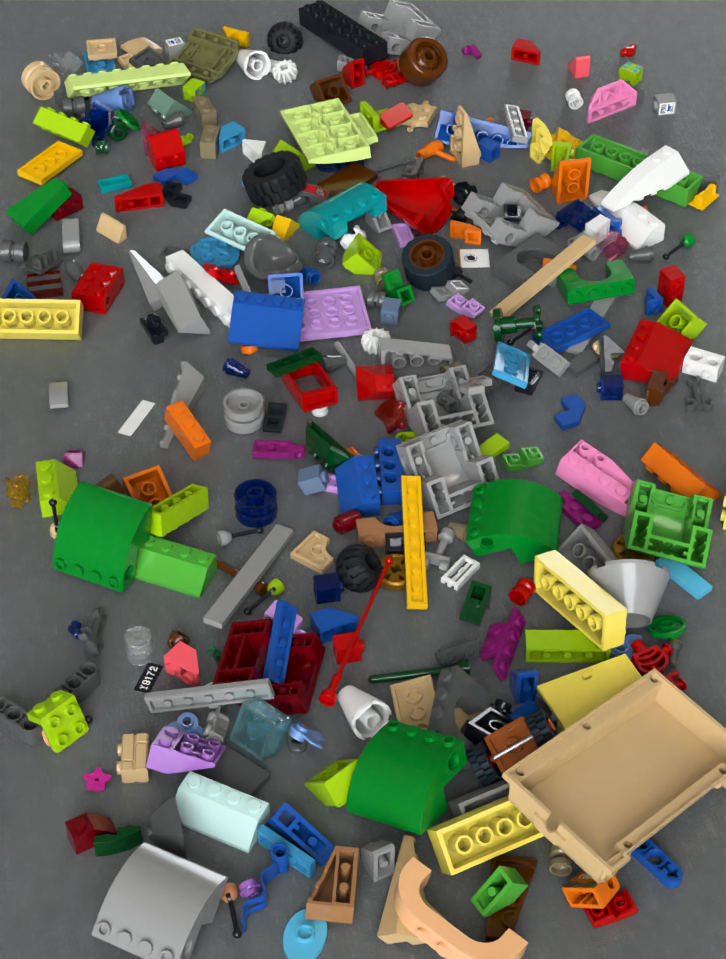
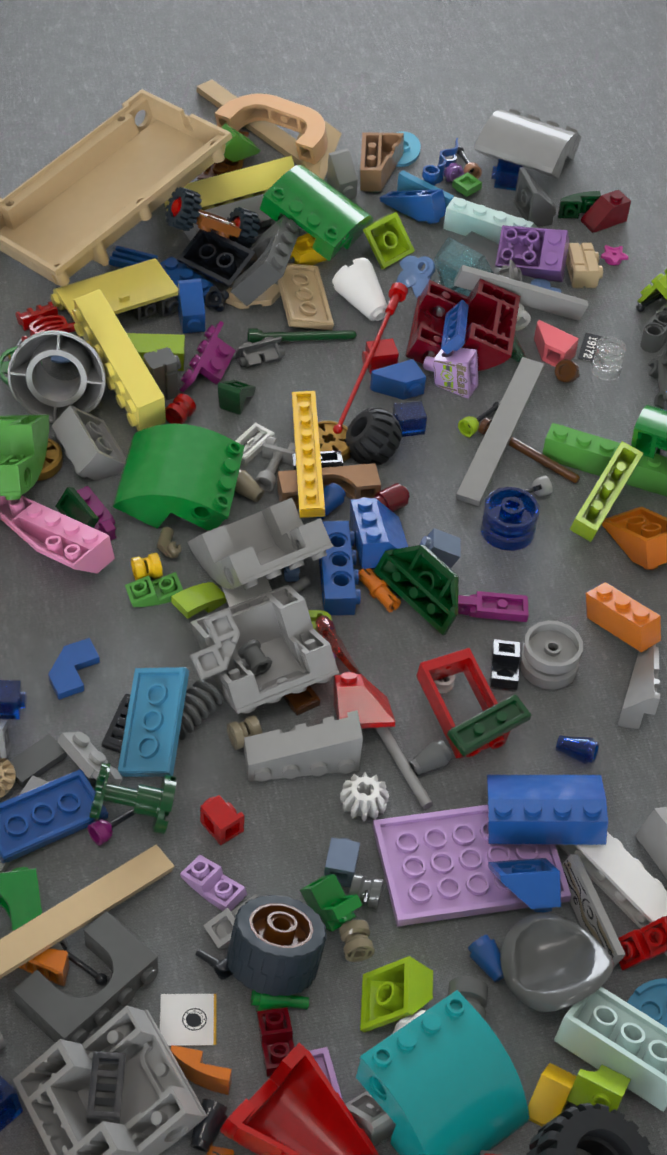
camera: 175 degrees right, 5 degrees up
(237, 869) = (467, 184): none -> bright green plate
(313, 553) = (429, 471): tan tile -> none
(530, 468) = (147, 566): none -> yellow wheel
(541, 607) = (164, 369): none -> dark grey brick

